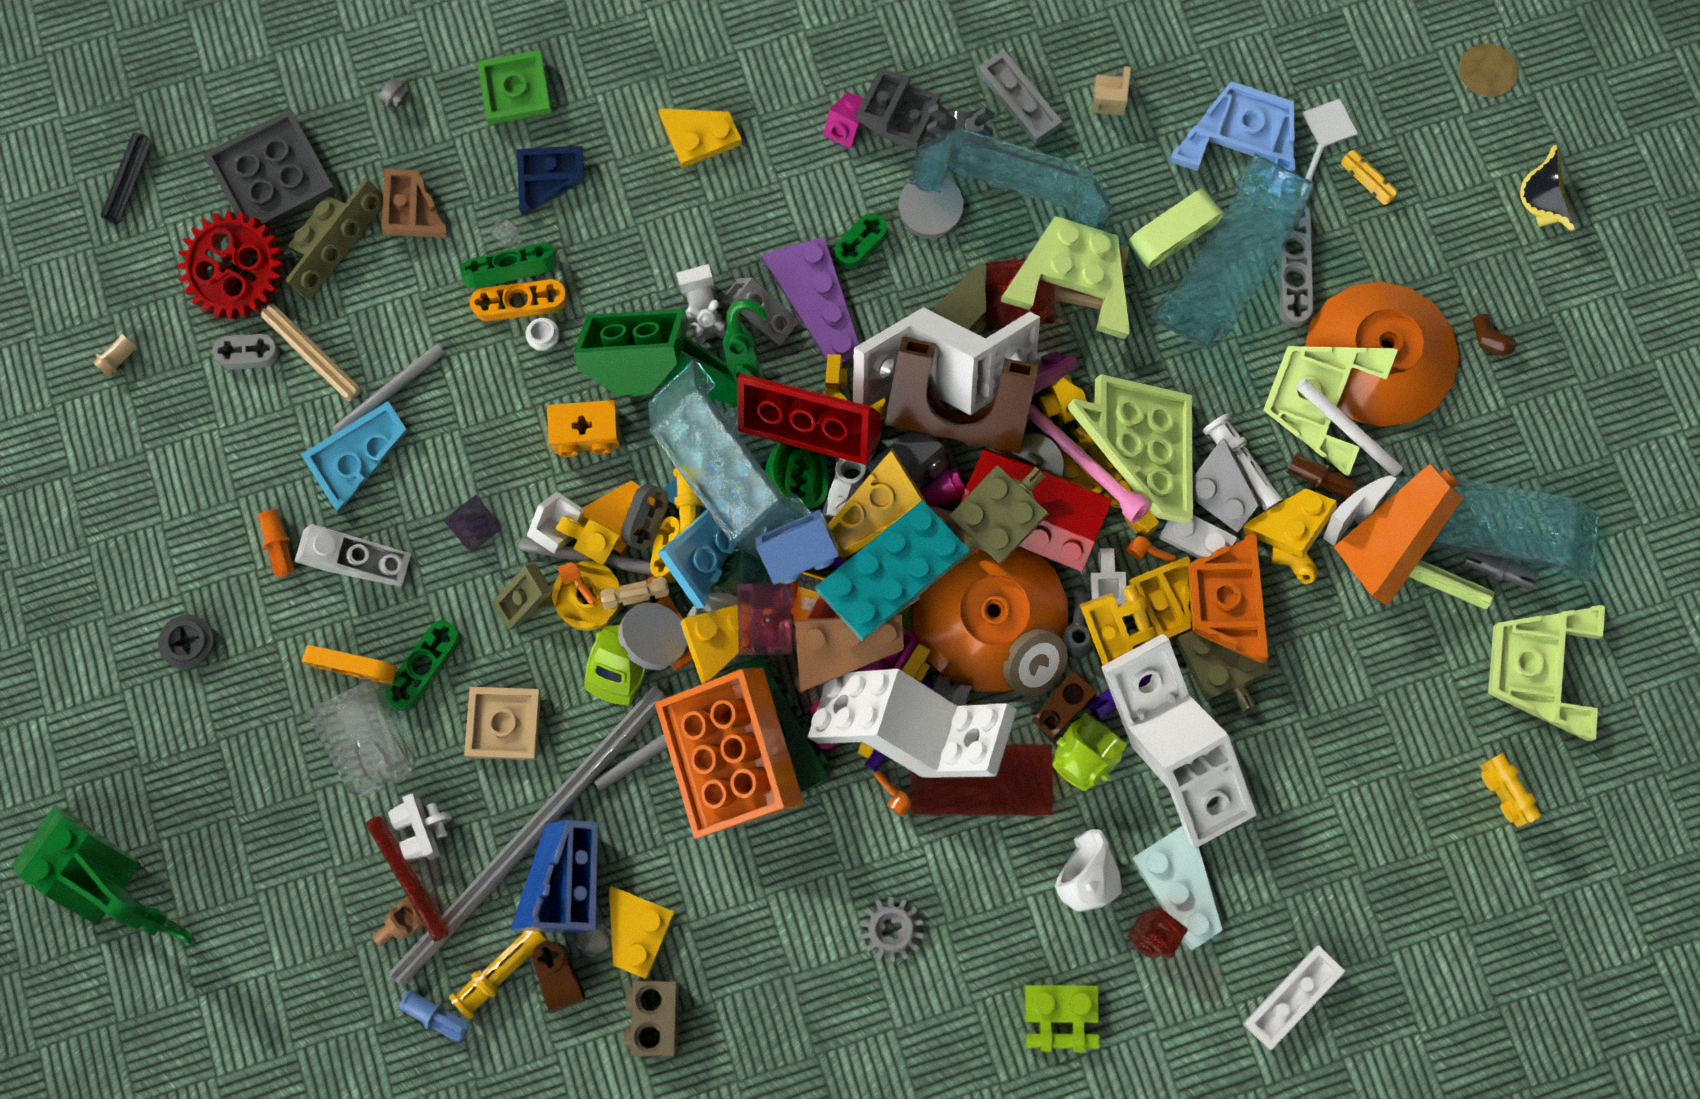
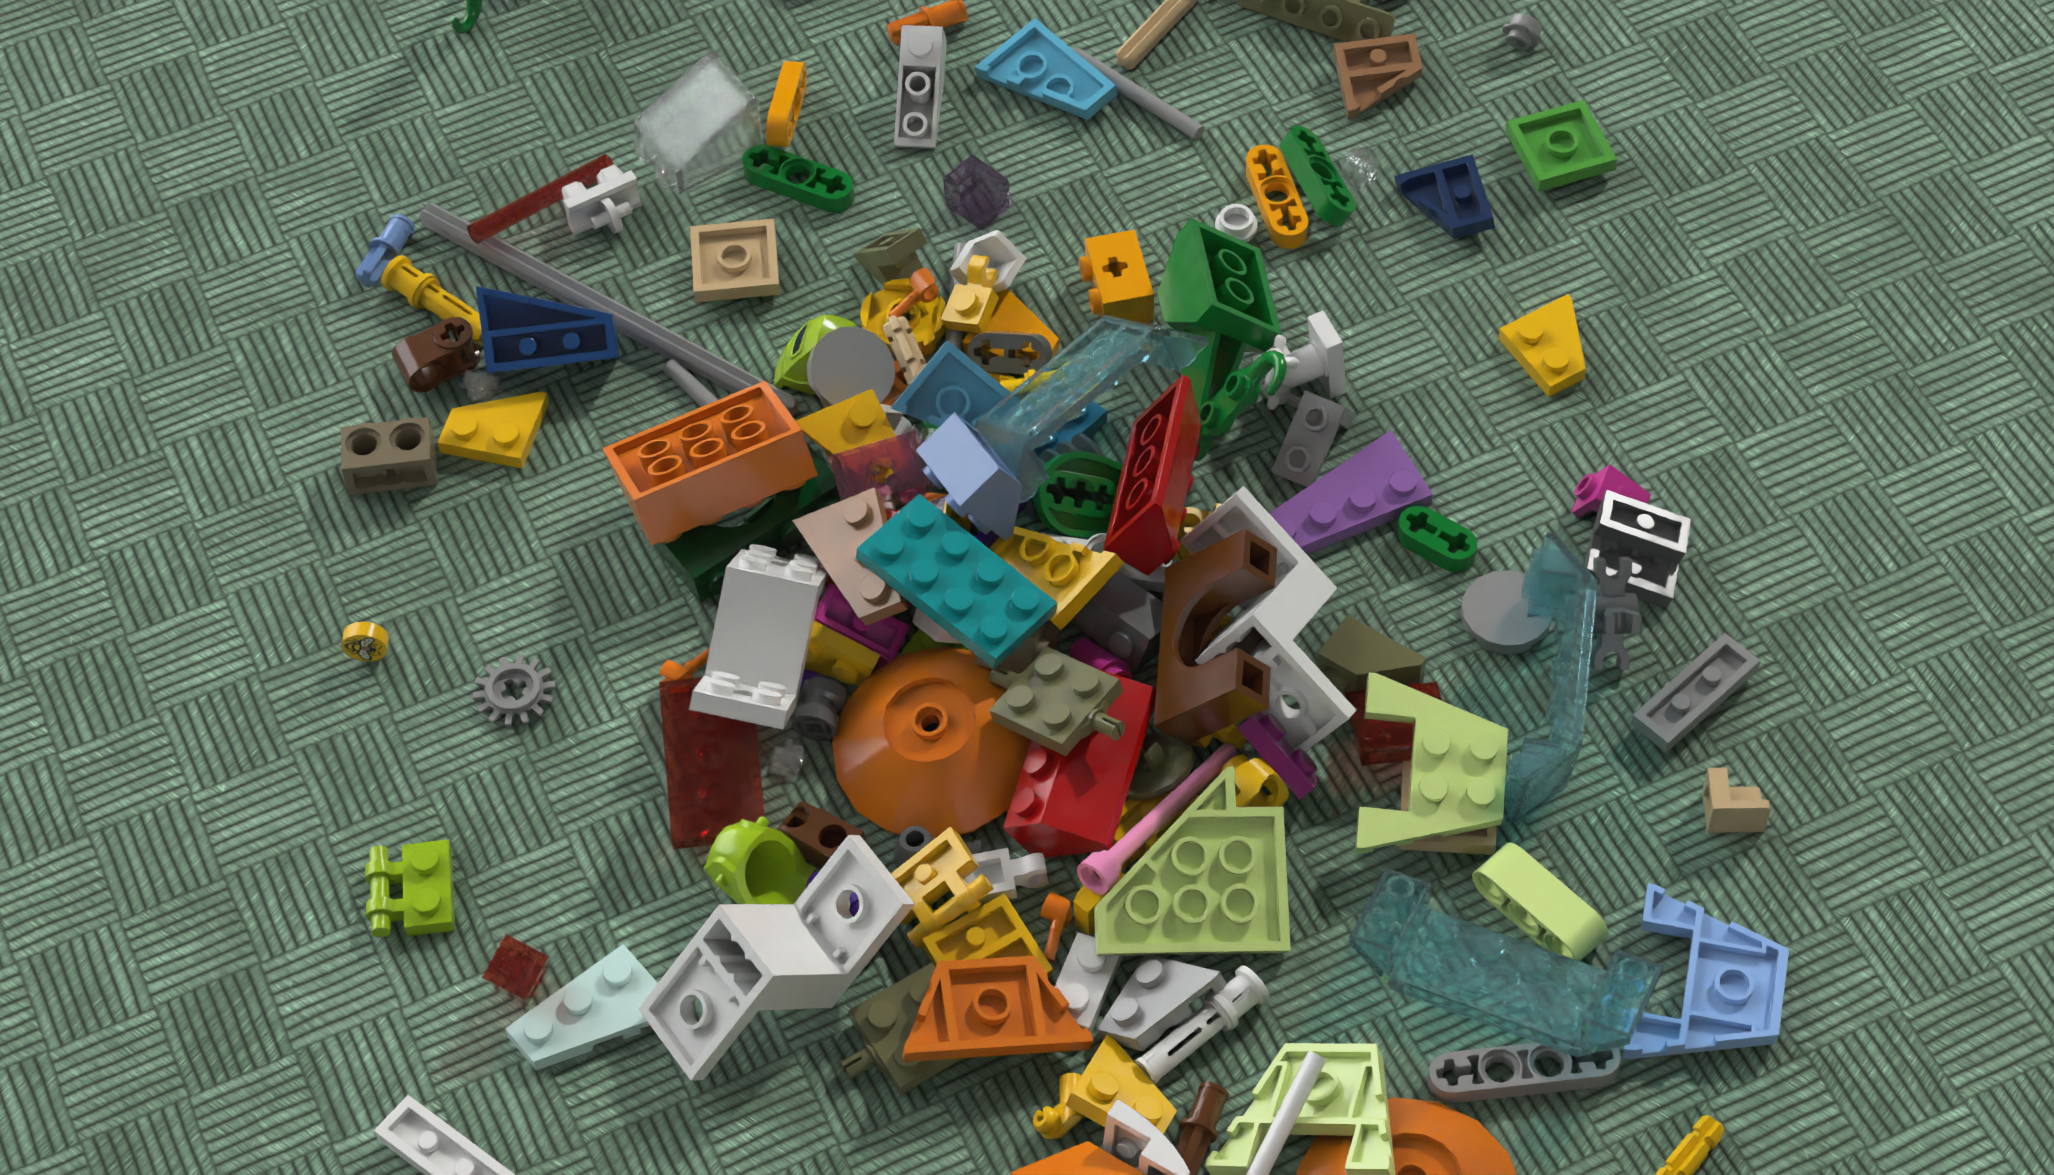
camera: 80 degrees right, 20 degrees down
(400, 923) = (488, 198): medium nougat piece -> none
(835, 1044) = (365, 641): none -> yellow tile
(1035, 662) = (872, 790): dark tan tile -> none
(1090, 874) = (587, 890): white helmet -> none
(1328, 125) = (1759, 1099): white piece -> none

